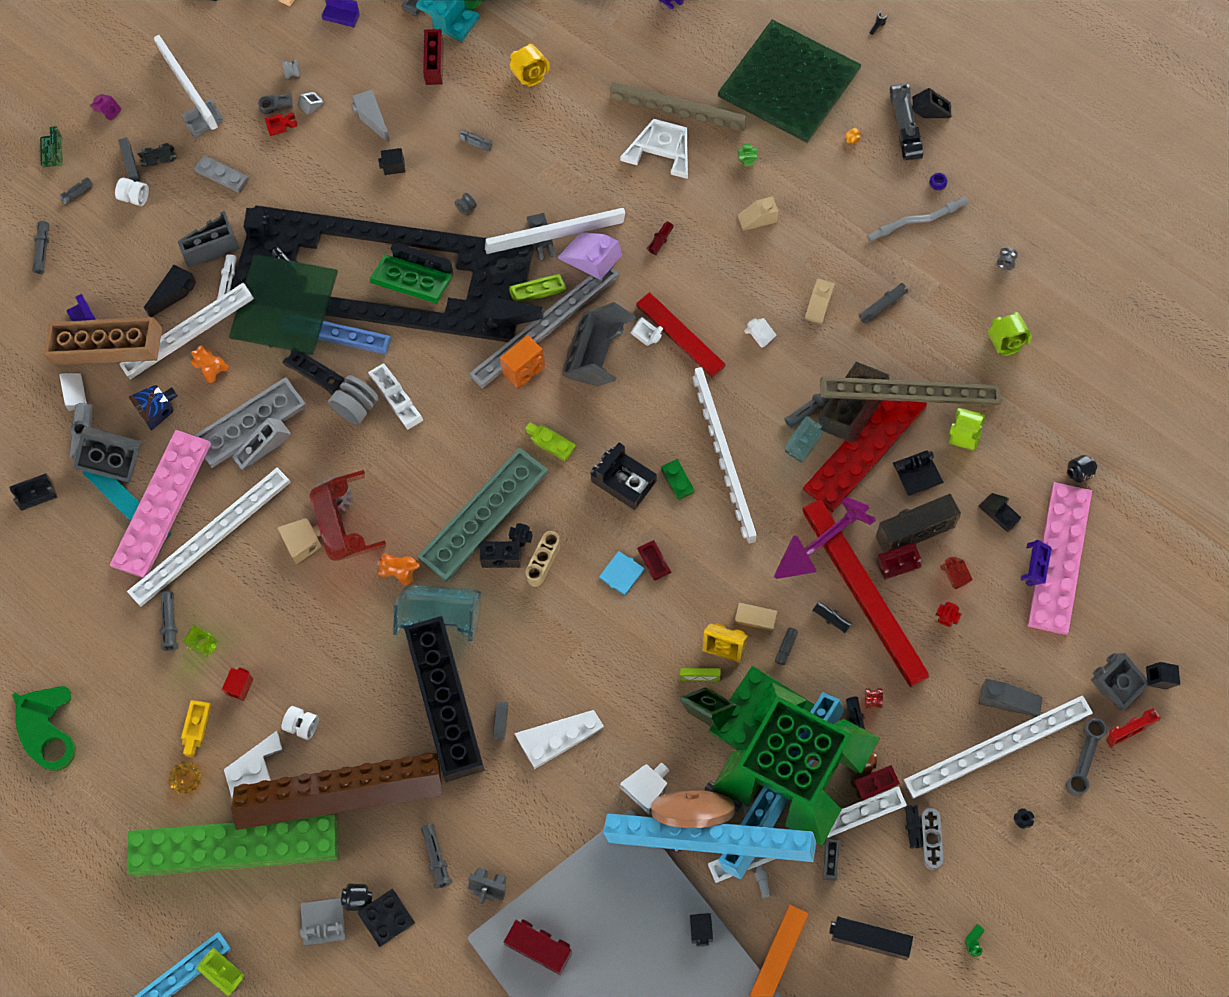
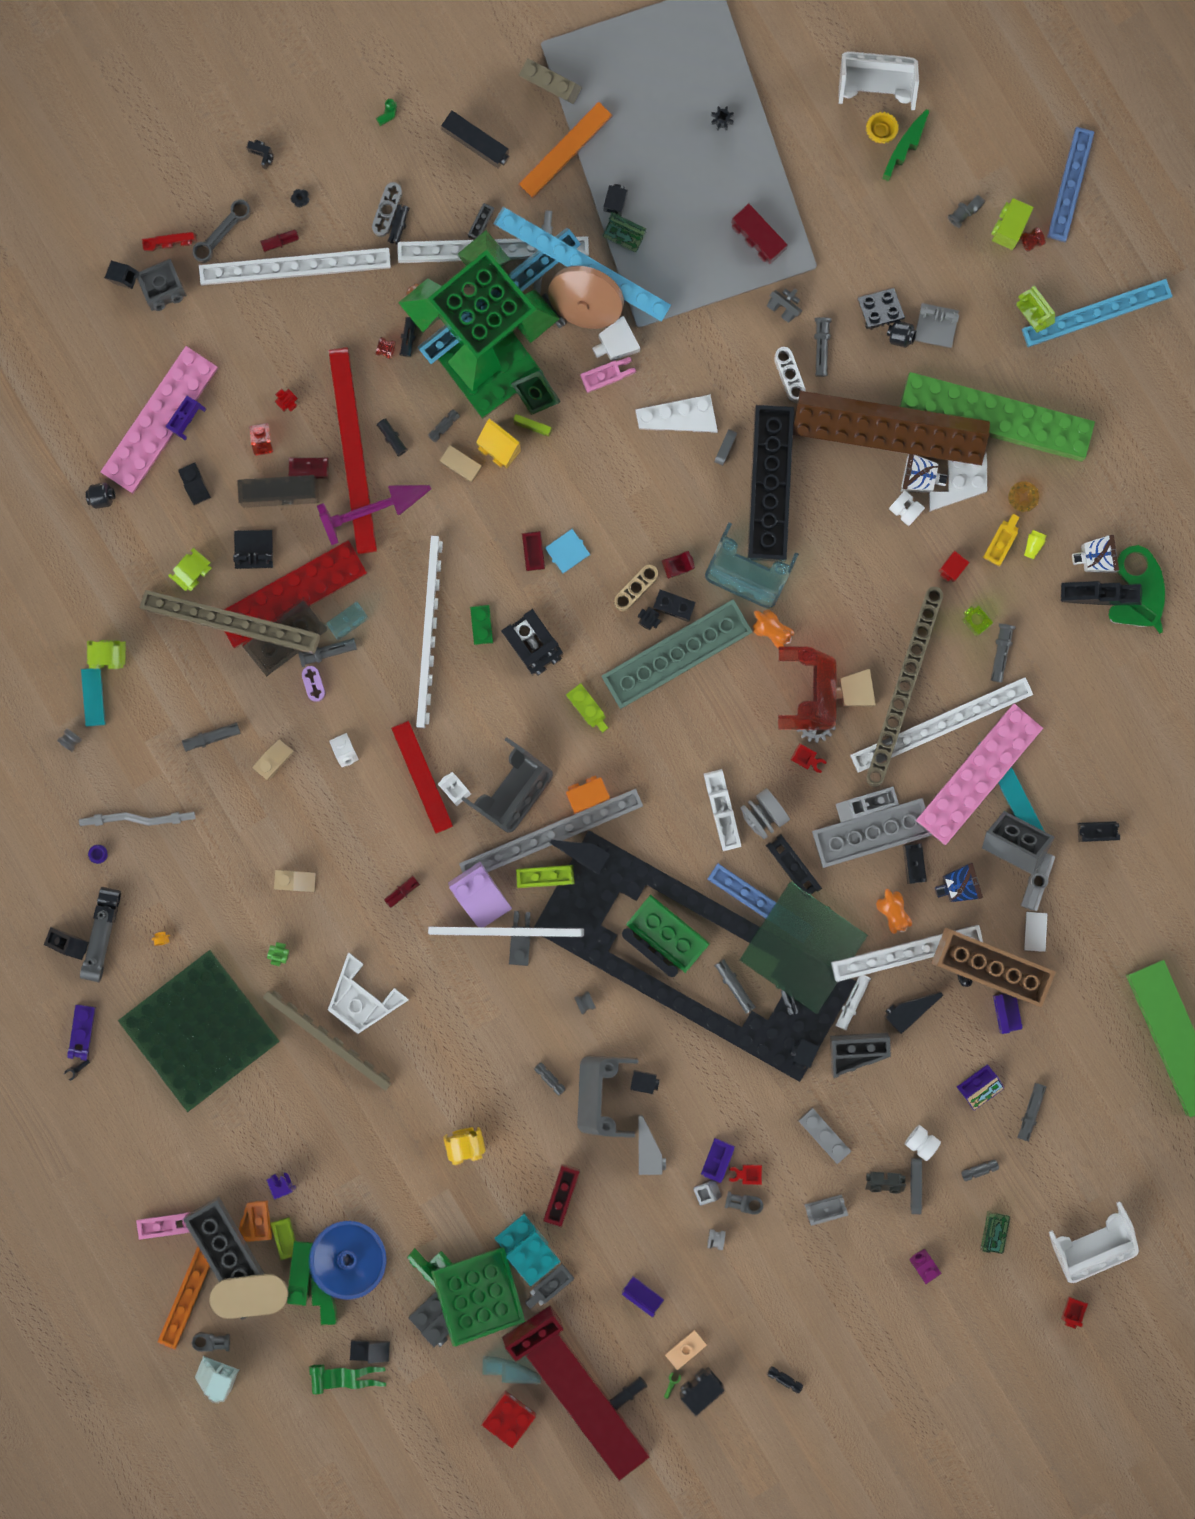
camera: 165 degrees left, 20 degrees up
(81, 708) = (1101, 593): none -> black slope
(93, 252) = (980, 1087): none -> panel
(93, 744) = (1098, 555): none -> torso
(161, 735) = (1034, 544): none -> neon yellow cone
(185, 82) = (833, 1255): white tile -> none
(201, 408) = (914, 863): none -> black hinge
(257, 562) = (909, 678): none -> dark tan beam
(294, 759) = (921, 475): none -> torso
(308, 125) = (717, 1160): none -> dark purple hinge
(330, 466) = (805, 757): none -> red plate
(343, 263) = (730, 979): none -> dark grey pin
(435, 155) = (590, 1095): none -> dark grey windscreen
(463, 823) = (791, 365): none -> white beam
(509, 593) = (678, 564): none -> dark red bracket
(645, 750) = (605, 375): none -> bright pink hinge
(679, 899) = (624, 232): none -> clear green panel
(808, 380) = (317, 681): none -> lavender beam
(875, 782) = (414, 272): dark red hinge -> none
(887, 50) = (81, 1031): none -> dark purple plate
(1001, 297) = (93, 697): none -> teal tile
(1010, 698) = (265, 305): dark grey slope -> none
(1025, 767) = (279, 240): none -> dark red axle
(1089, 853) = (259, 148): none -> black bracket

